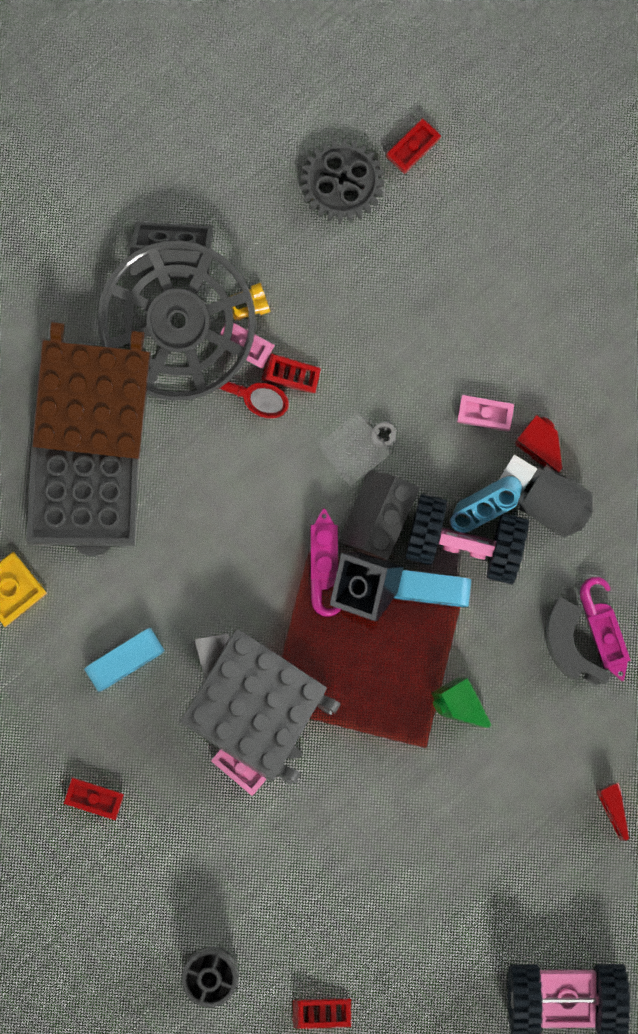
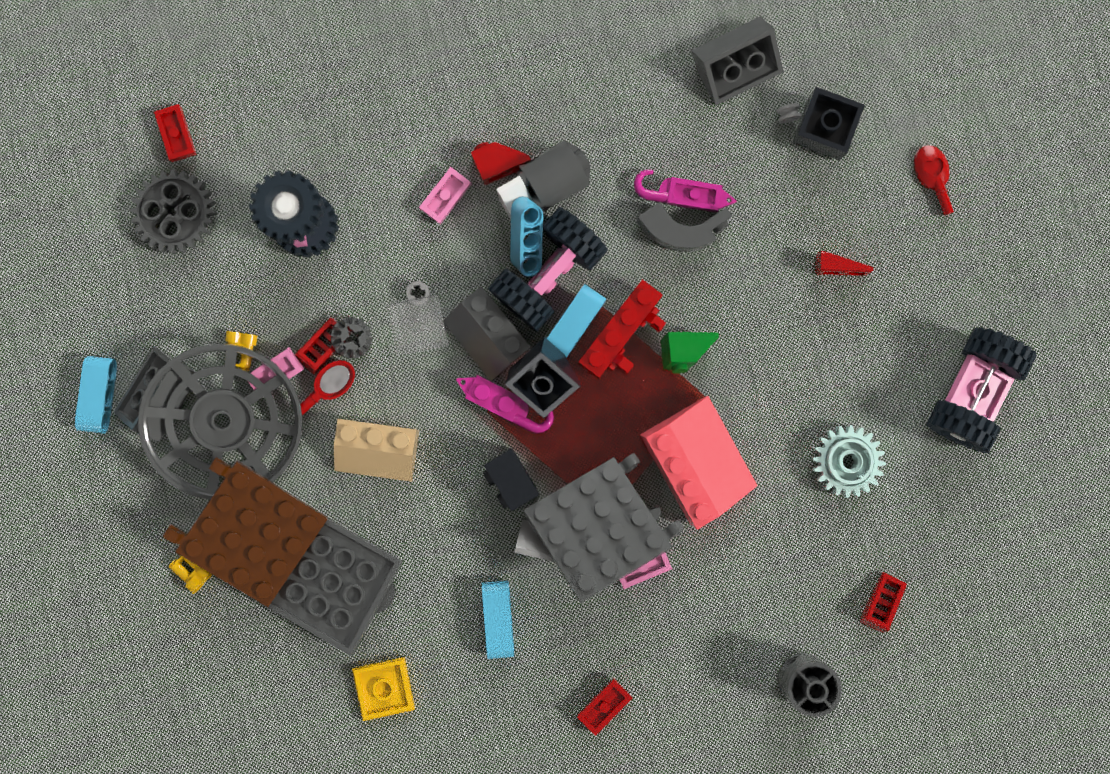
camera: 60 degrees left, 5 degrees up
(25, 371) = (193, 580): none -> yellow piece
(143, 198) = (95, 394): none -> medium azure beam
(222, 470) = (375, 450): none -> tan slope
(258, 604) = (511, 480): none -> black brick
(300, 399) = (340, 333): none -> dark grey gear
(364, 770) = (699, 462): none -> coral slope
(395, 289) = (294, 214): none -> black plate
(454, 910) = (864, 461): none -> light aqua gear
(470, 639) = (609, 345): none -> red hinge

